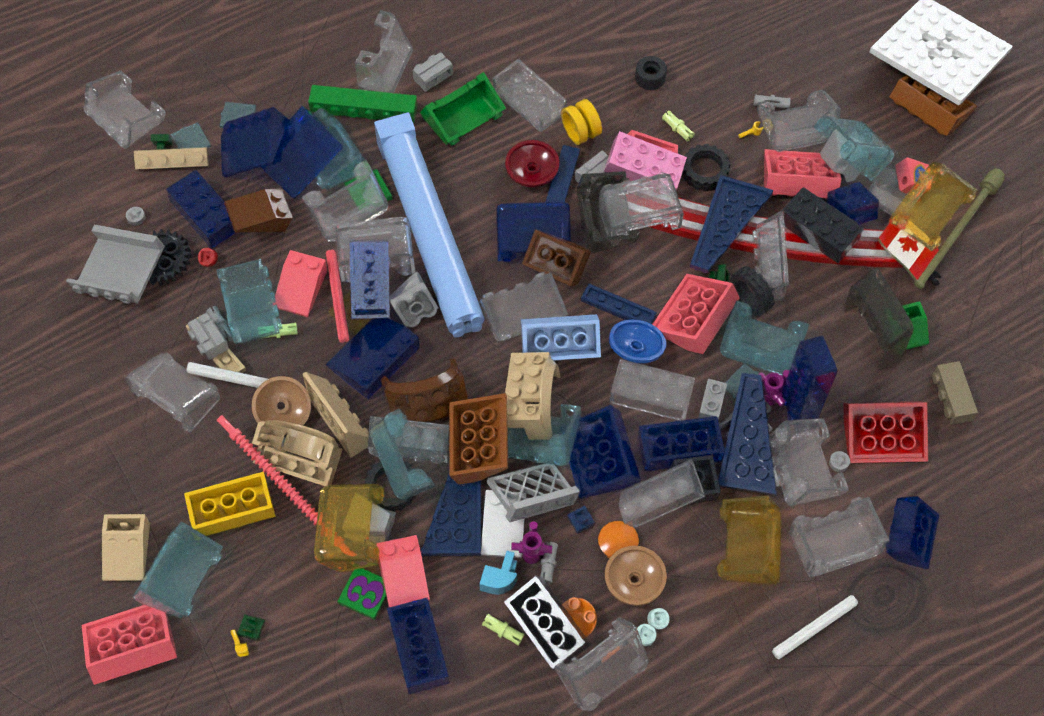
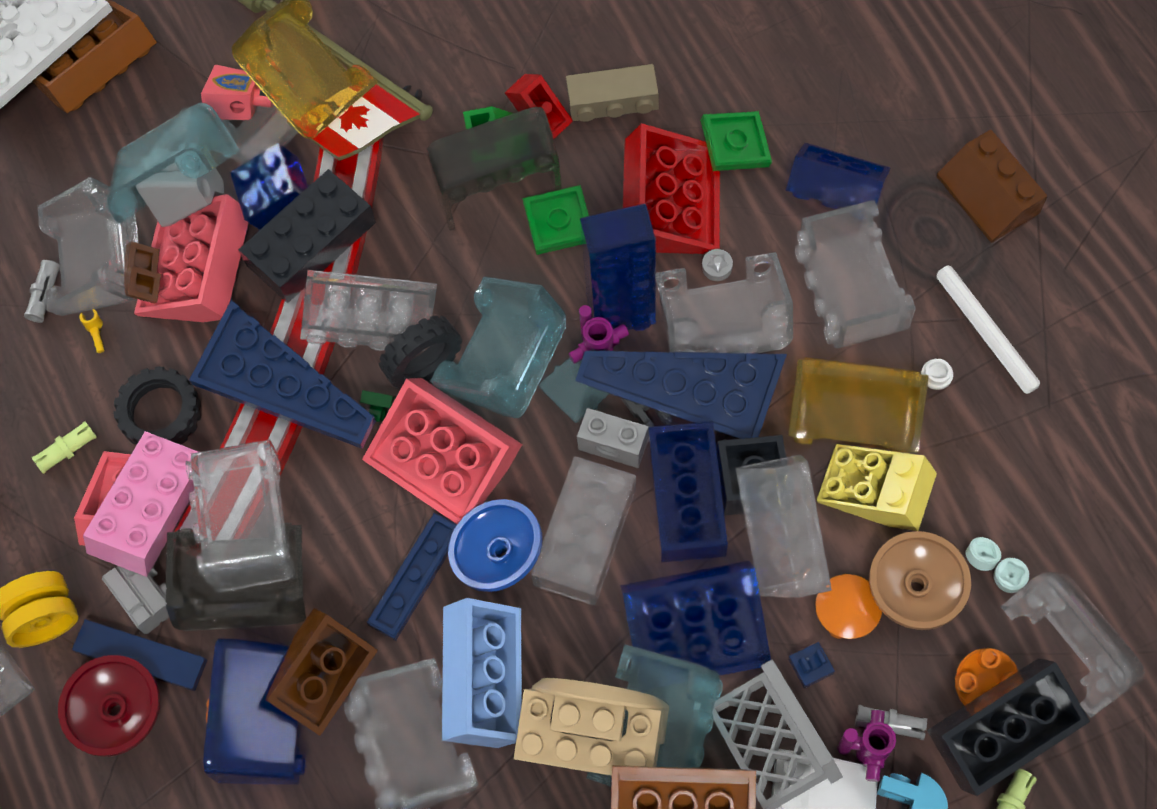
camera: 80 degrees left, 5 degrees up
(697, 556) = (878, 485): none -> light yellow slope
(778, 594) = (939, 373): none -> white plate
(787, 146) = (140, 272): none -> reddish brown slope
(858, 368) = (556, 219): none -> green tile
(921, 631) = (992, 186): none -> reddish brown slope
(931, 469) = (736, 141): none -> green tile
(937, 350) = (534, 91): none -> red slope

